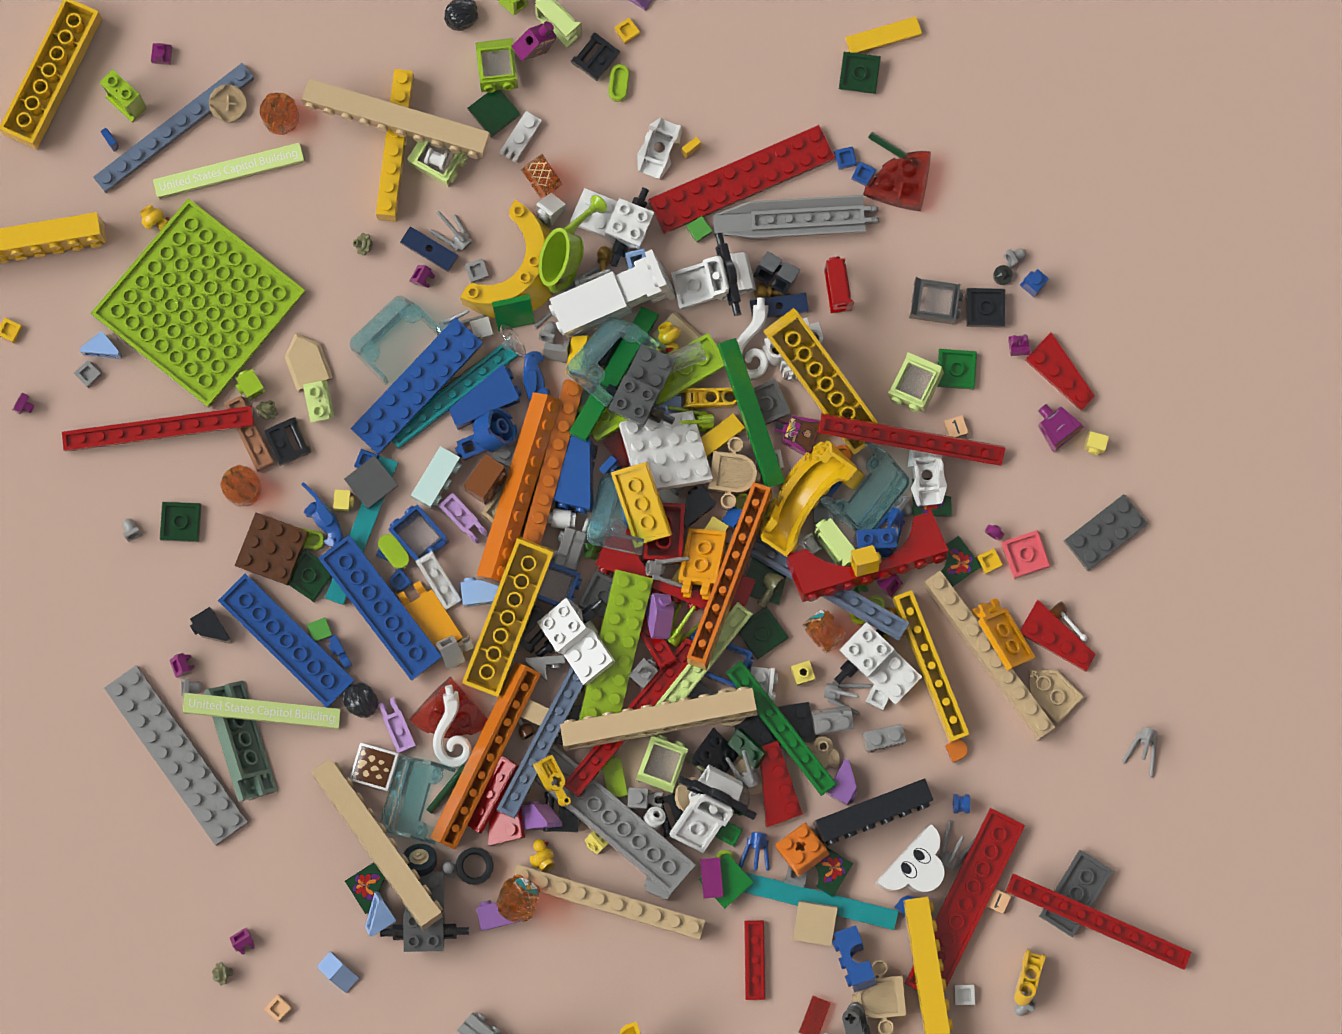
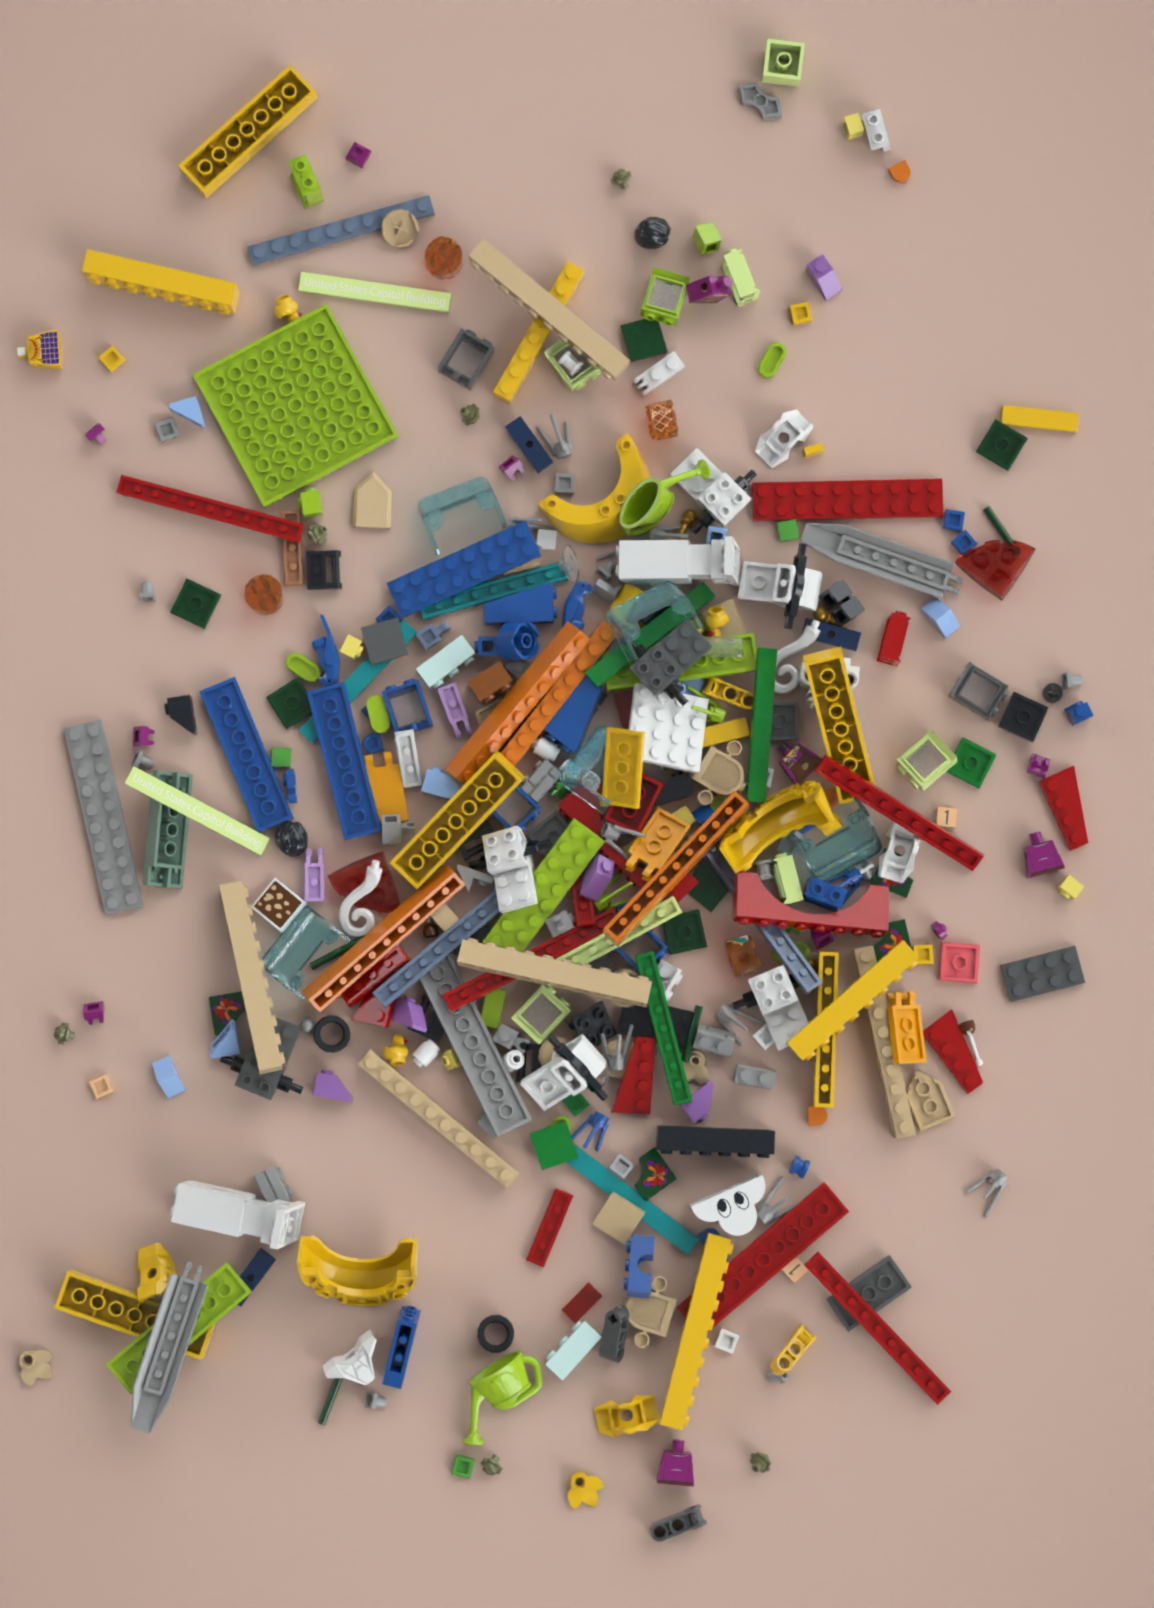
camera: 20 degrees right, 5 degrees up
(109, 138) = (277, 217): blue tile -> none
(271, 548) = (268, 664): reddish brown plate -> none
(318, 401) = (367, 545): yellowish green window -> none
(338, 195) = (466, 358): none -> window
(411, 459) = (430, 636): none -> sand blue plate
(421, 858) = (286, 1007): black wheel -> none
(514, 312) = (582, 537): green tile -> none
(518, 899) = (357, 1082): clear orange brick -> none
(547, 771) = (434, 976): yellow piece -> none
(550, 209) = (657, 454): white slope -> none
(570, 846) = (425, 1053): none -> white brick
(600, 59) = (764, 331): black plate -> none
(610, 465) = (610, 719): blue plate -> none
(711, 878) = (541, 1137): magenta tile -> none
(742, 741) = (623, 1025): dark green plate -> none
(773, 583) = (714, 890): olive bar -> none
(798, 678) = (699, 985): light yellow plate -> none
(800, 860) = (643, 1137): orange brick -> none
(809, 722) = (691, 1034): none -> dark green bar
(865, 560) = (806, 908): yellow brick -> none
(872, 248) = (941, 617): none -> light blue slope
(943, 628) = (853, 999): none -> yellow brick

